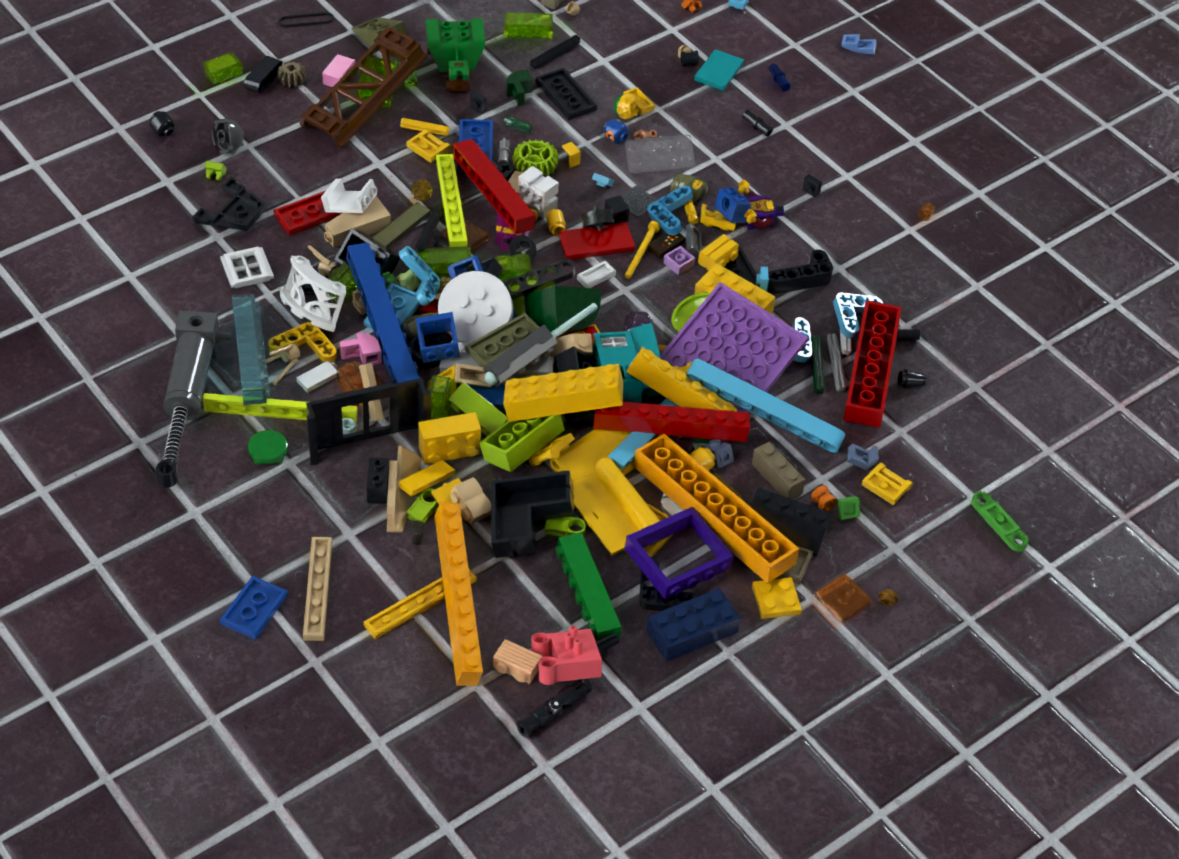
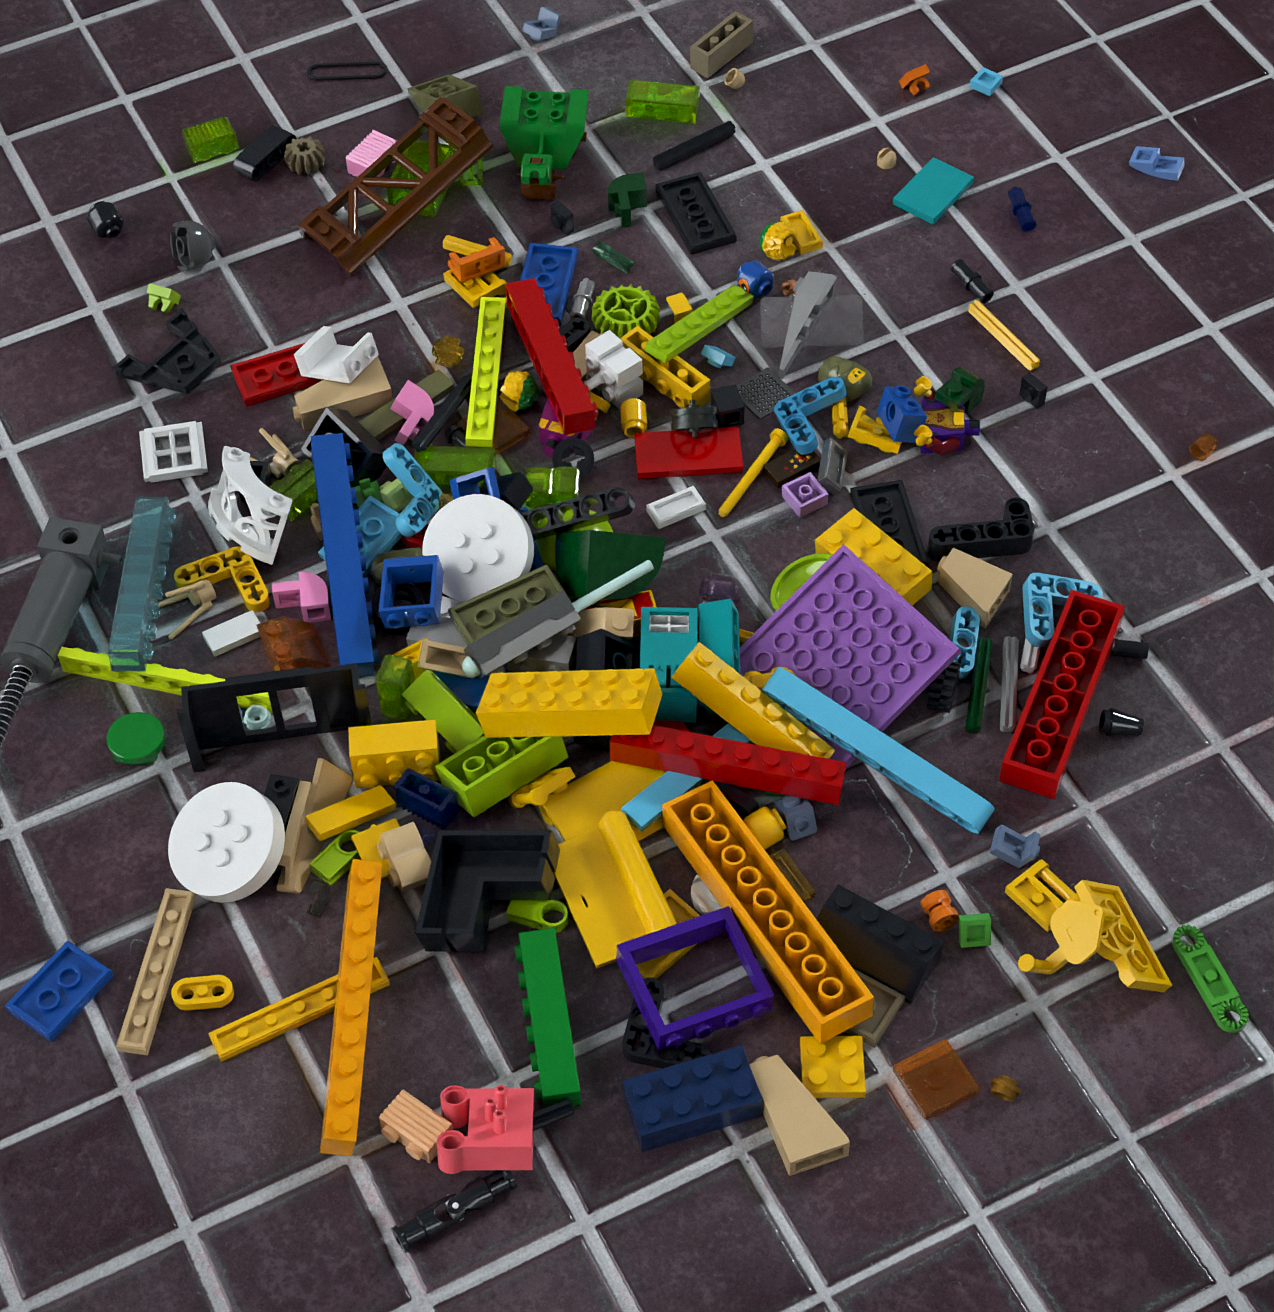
camera: 15 degrees right, 5 degrees up
(349, 502) = (226, 842): none -> white brick
(353, 597) = (203, 992): none -> yellow plate
(369, 380) = (295, 660): tan tile -> none
(408, 225) = (415, 407): none -> bright pink brick
(430, 132) = (478, 262): none -> orange hinge
(476, 210) = (519, 391): none -> piece
(476, 464) = (426, 798): none -> clear blue brick
(574, 191) = (673, 378): none -> yellow brick
(587, 159) = (698, 323): none -> lime plate
(658, 142) = (810, 301): none -> light grey wedge
(689, 58) = (891, 169): black bush -> none
(719, 252) = (864, 490): yellow brick -> none
(762, 278) = (921, 538): medium azure plate -> none
(762, 630) = (796, 1120): none -> tan slope
(767, 187) = (962, 389): none -> dark green brick
(778, 471) = (878, 858): dark tan brick -> none
(785, 154) = (1004, 335): none -> yellow axle
(797, 367) = (944, 688): none -> black tyre
(800, 303) = (974, 583): none -> tan slope
(924, 493) = (1102, 925): none -> yellow plate

